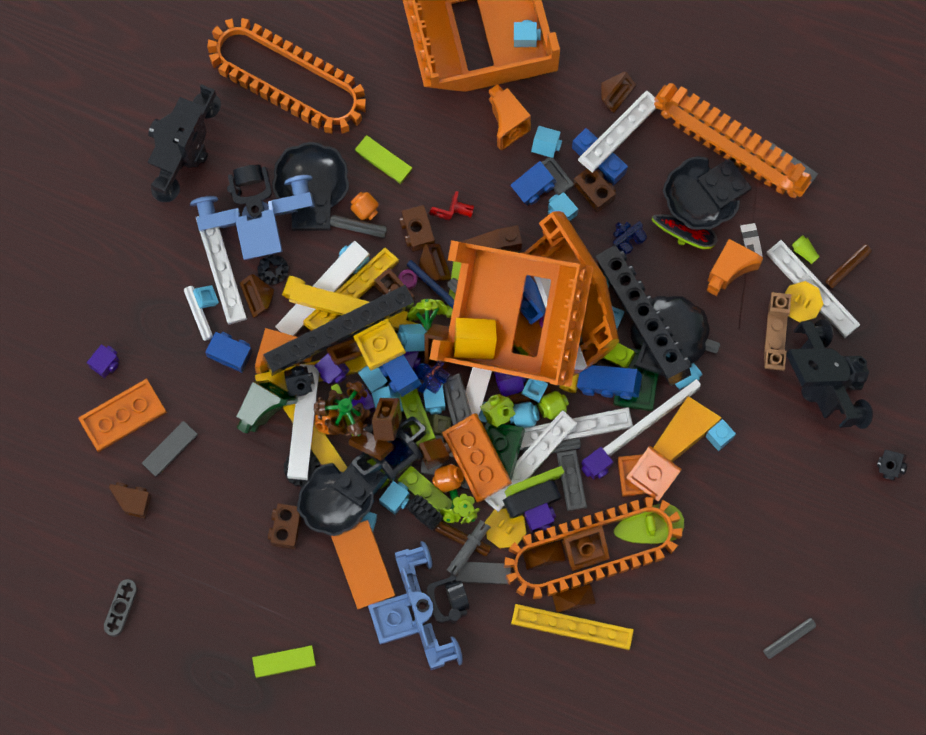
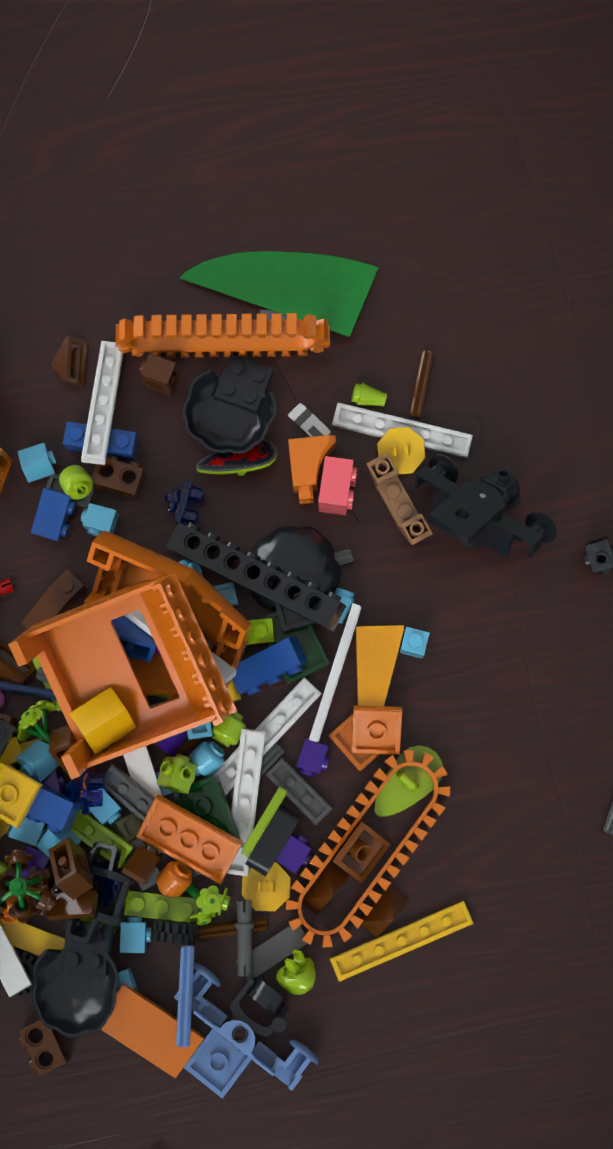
camera: 30 degrees left, 5 degrees up
(403, 556) = (185, 996): none -> medium blue axle
(486, 598) = (297, 975): none -> lime piece
(564, 172) = (75, 482): none -> lime head
(670, 139) = (159, 374): none -> reddish brown brick
(740, 293) = (335, 486): none -> coral brick
(806, 137) = (292, 283): none -> green sticker

